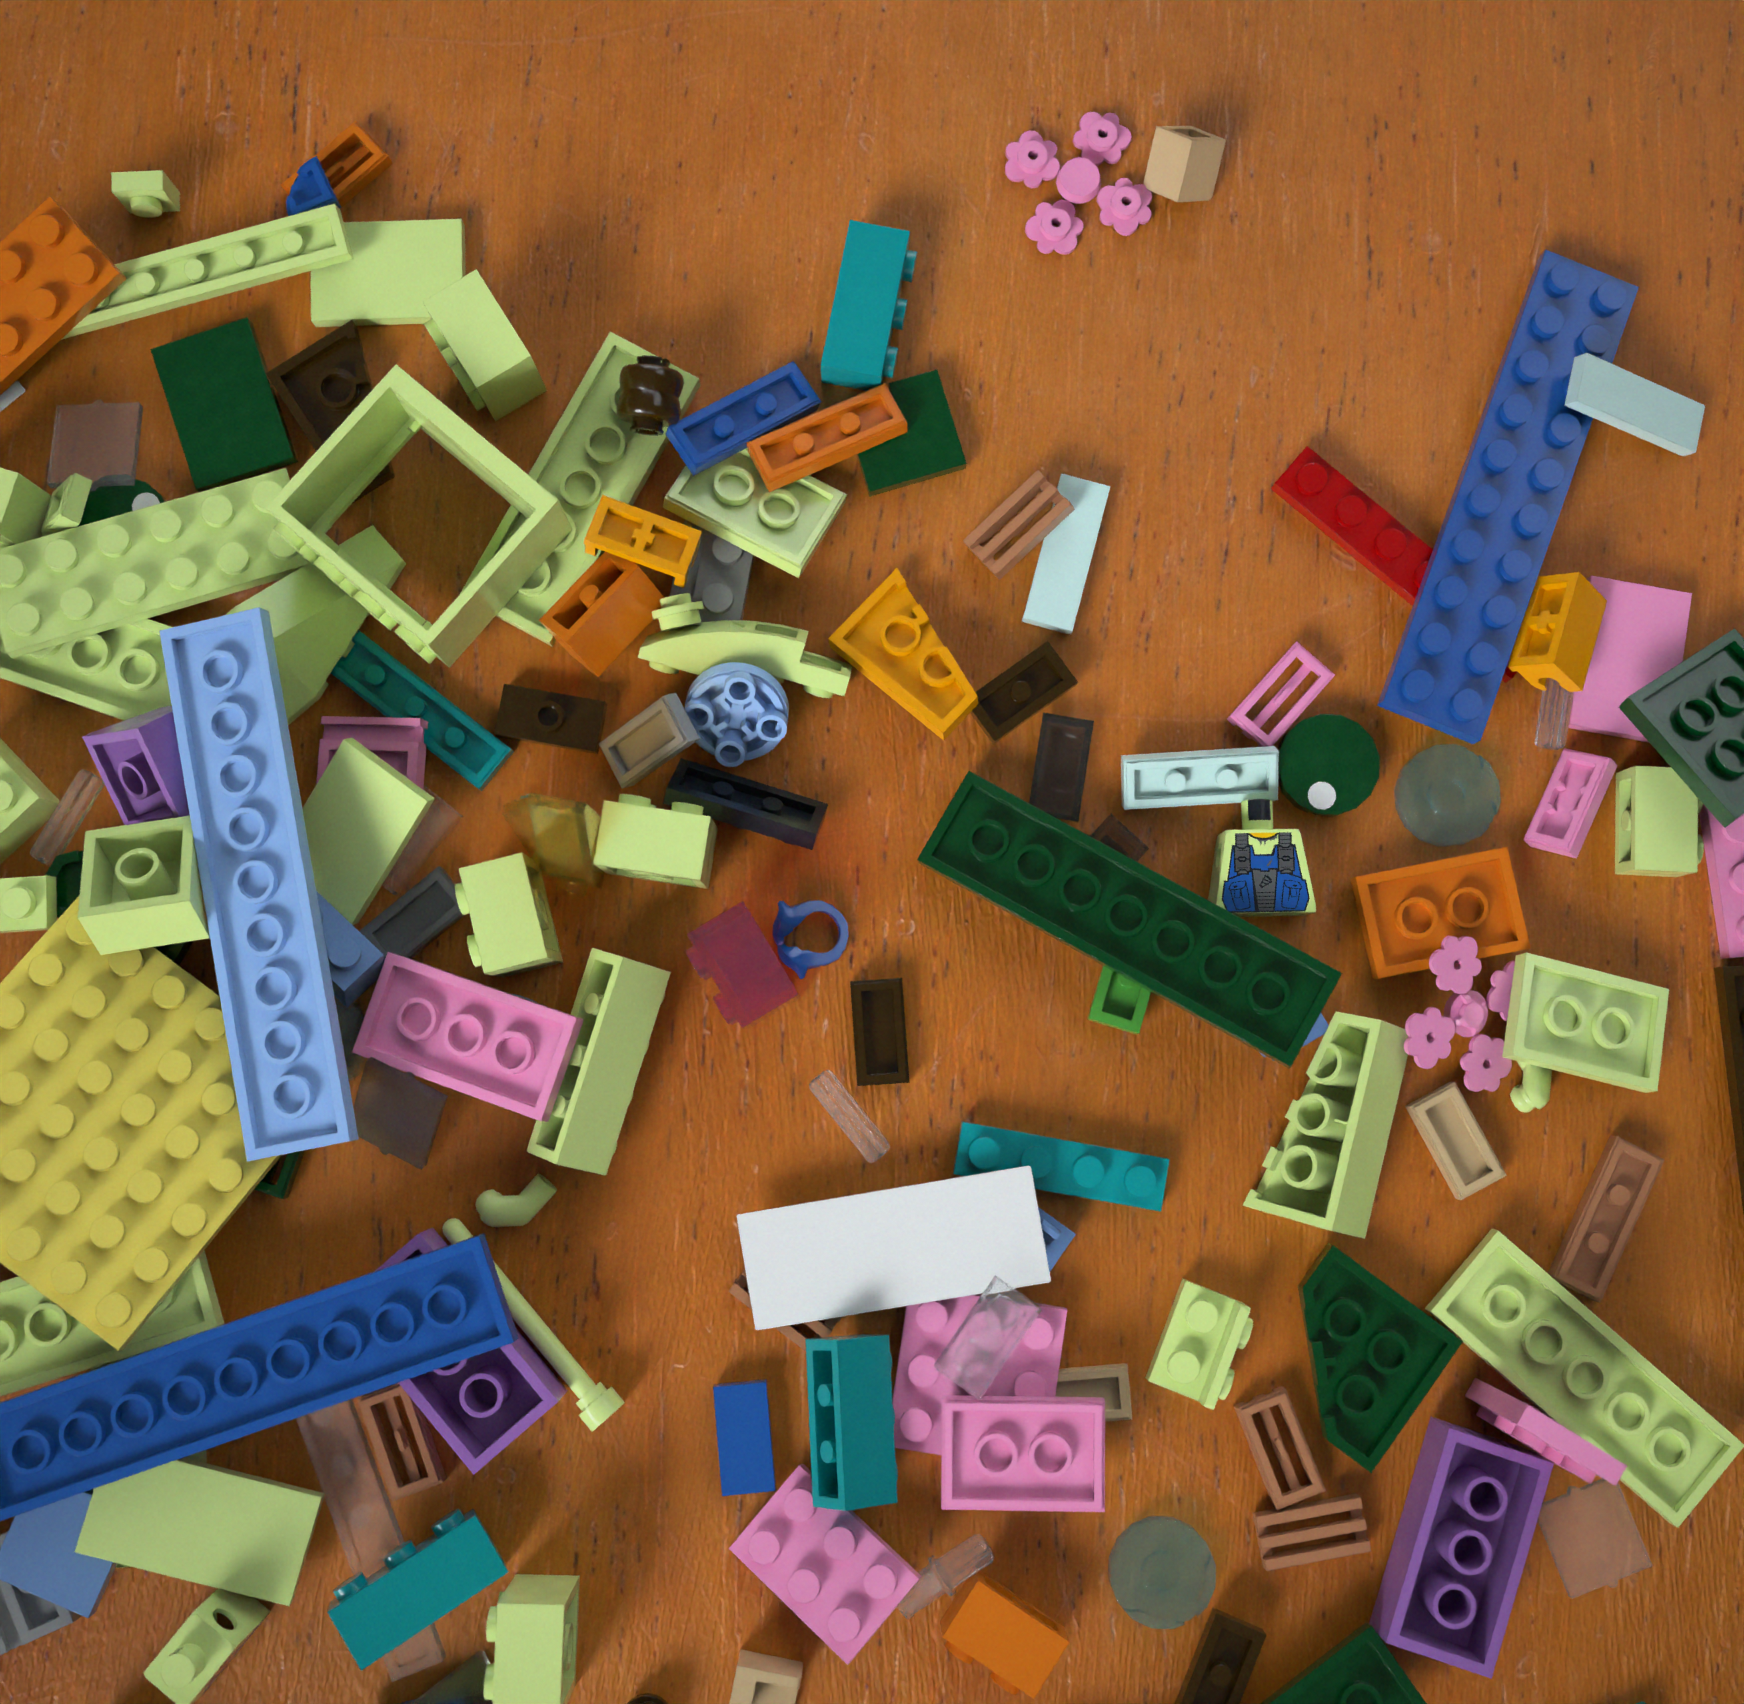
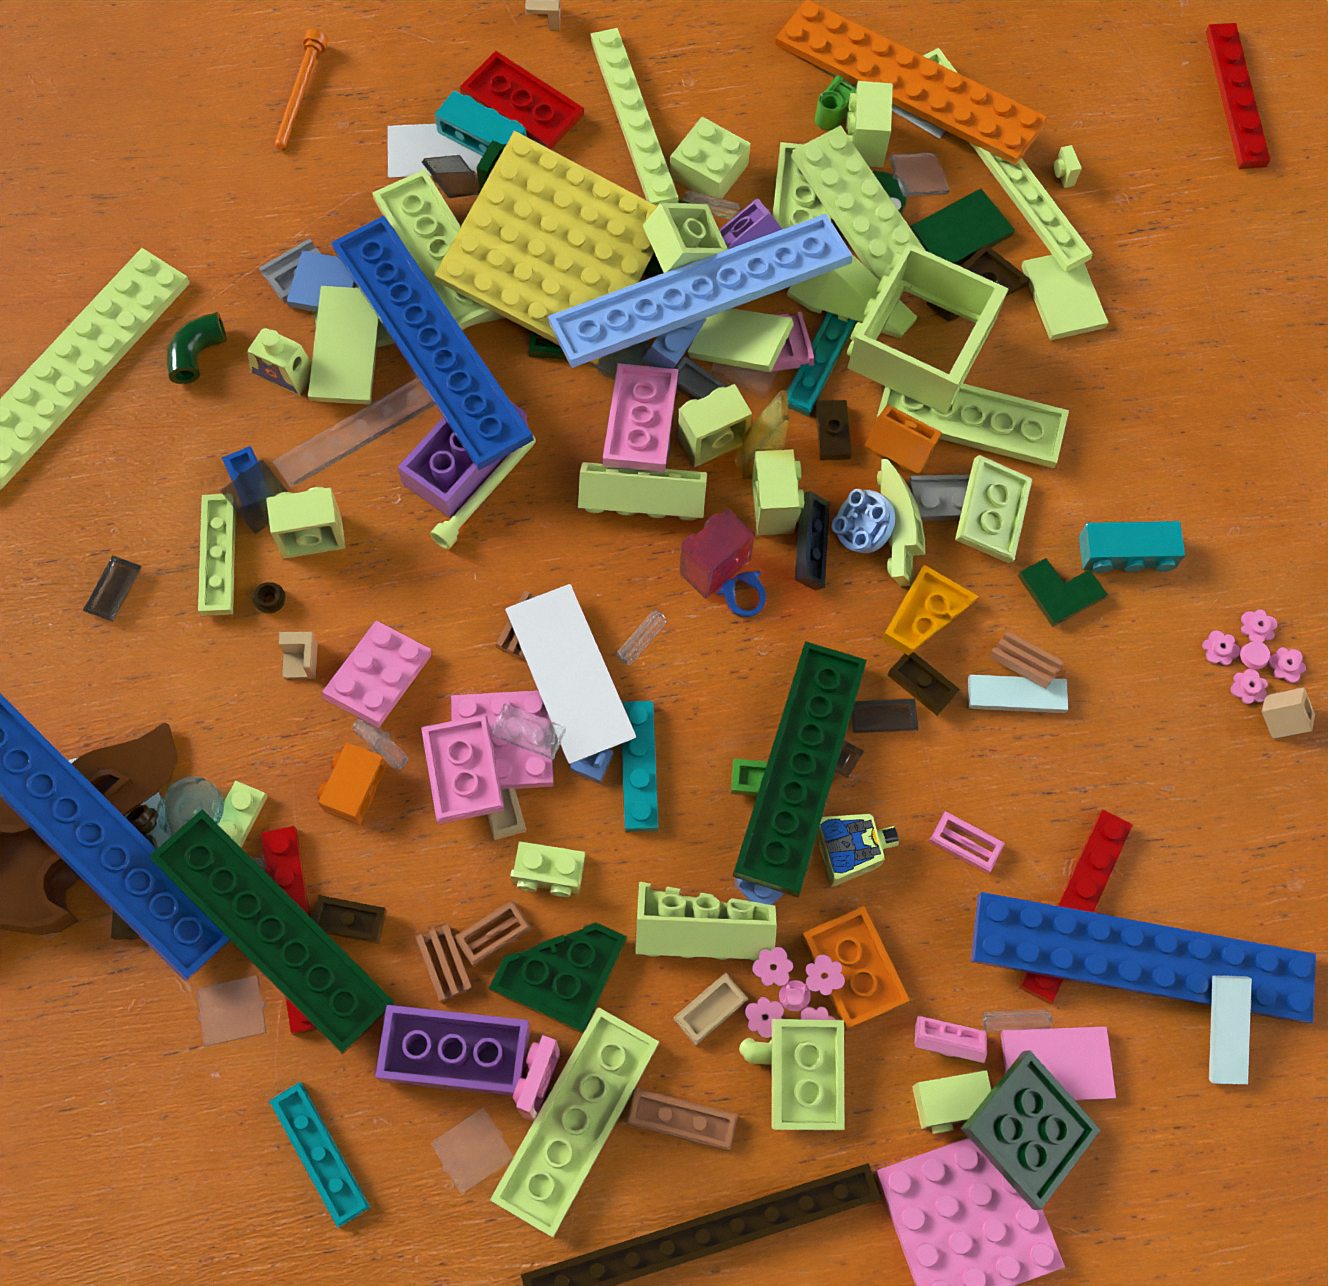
camera: 80 degrees right, 15 degrees down
(66, 505) = (882, 165): yellowish green tile -> none
(310, 189) = (1098, 243): blue tile -> none
(354, 172) = (1110, 260): orange tile -> none
(382, 1447) = (402, 448): nougat tile -> none
(397, 1112) = (588, 394): clear smoke piece -> none
(415, 1586) = (329, 456): teal brick -> none
(482, 346) = (1036, 343): yellowish green brick -> none
(515, 1210) = (547, 468): yellowish green arm -> none
(643, 538) = (950, 446): light orange hinge -> none
(649, 395) = (1036, 433): dark brown piece -> none
(649, 740) = (834, 478): light grey tile -> none
(678, 612) = (914, 476): yellowish green plate -> none
(741, 417) = (1041, 492): blue tile -> none
(744, 1437) = (441, 617): blue tile -> none
(827, 437) = (1044, 539): orange tile -> none
(851, 1421) = (464, 668): teal brick -> none
(879, 1032) = (695, 645): dark brown tile -> none
(1161, 1572) = (403, 875): clear light blue tile -> none
(1199, 777) = (901, 799): light aqua tile -> none
(1327, 765) = (931, 879): dark green tile -> none
(1447, 795) = (933, 961): clear light blue tile -> none
(1558, 632) = (1061, 1005): light orange hinge -> none

